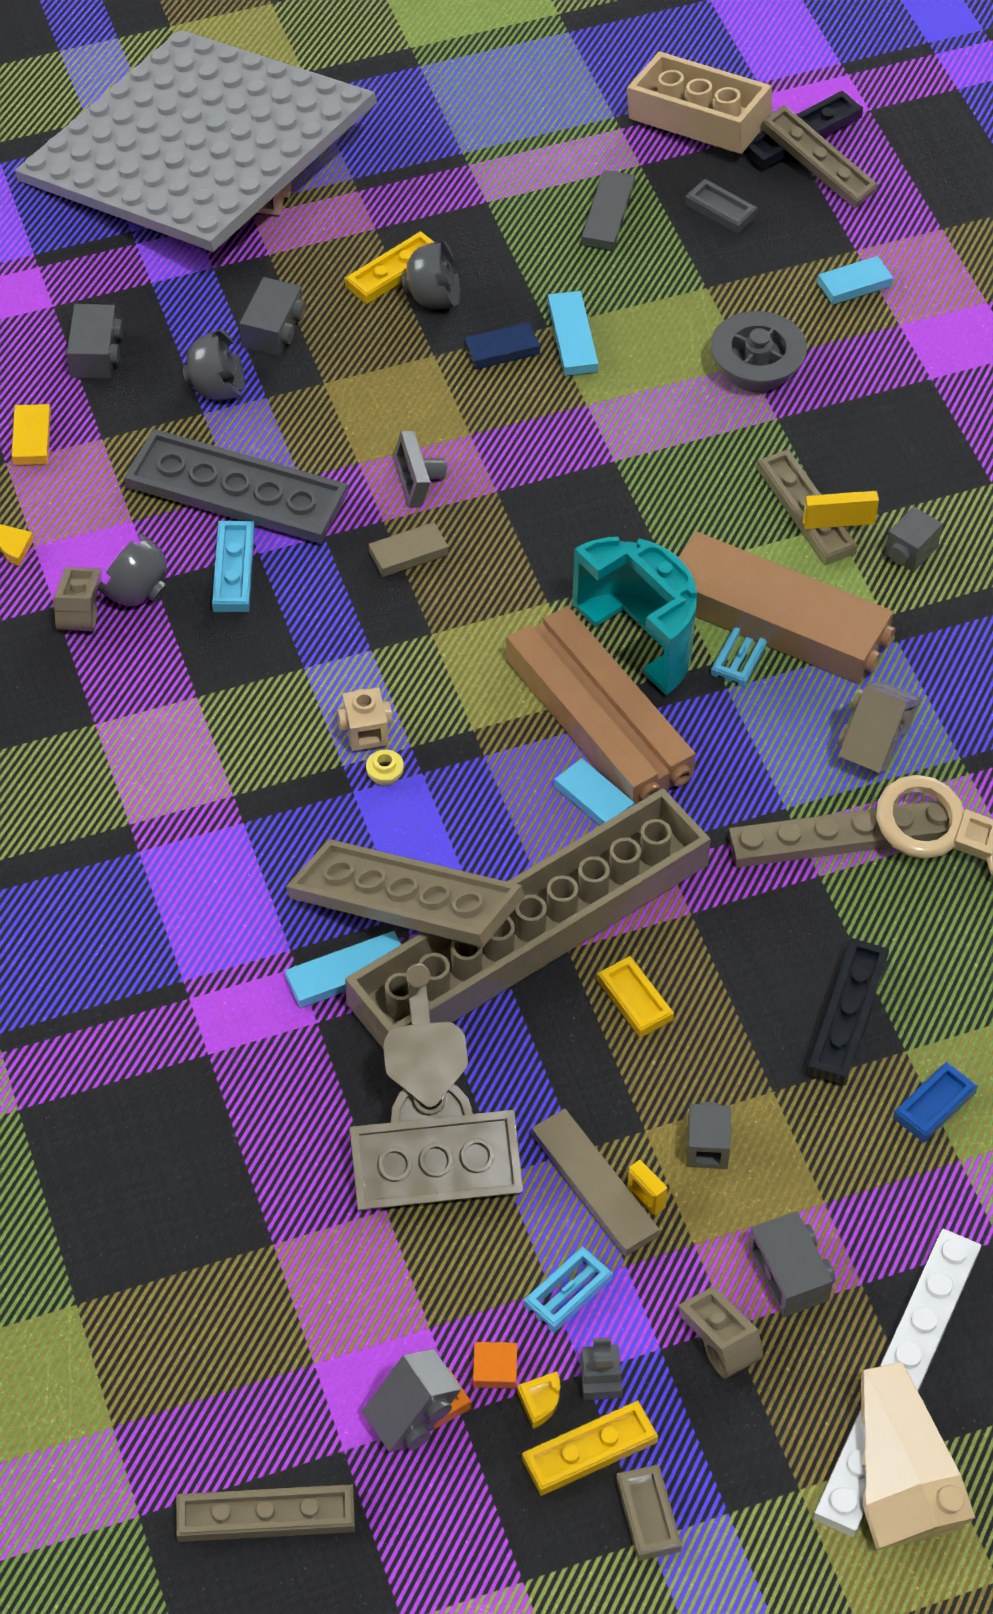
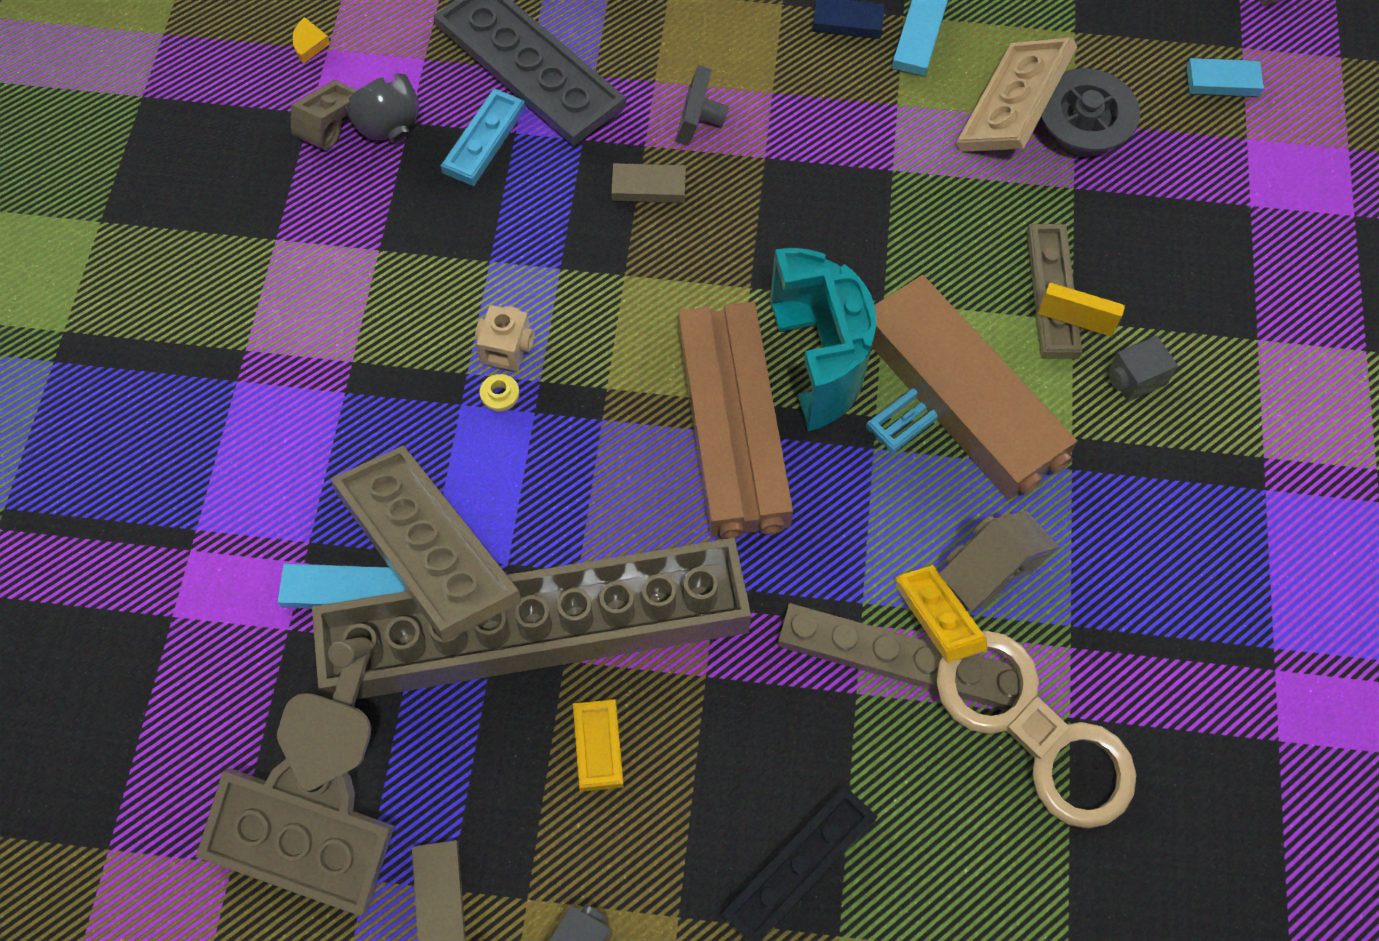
camera: 25 degrees right, 10 degrees up
(592, 792) = (680, 506): medium azure tile -> none
(690, 357) = (1017, 95): none -> tan tile
(856, 781) = (941, 614): none -> yellow tile

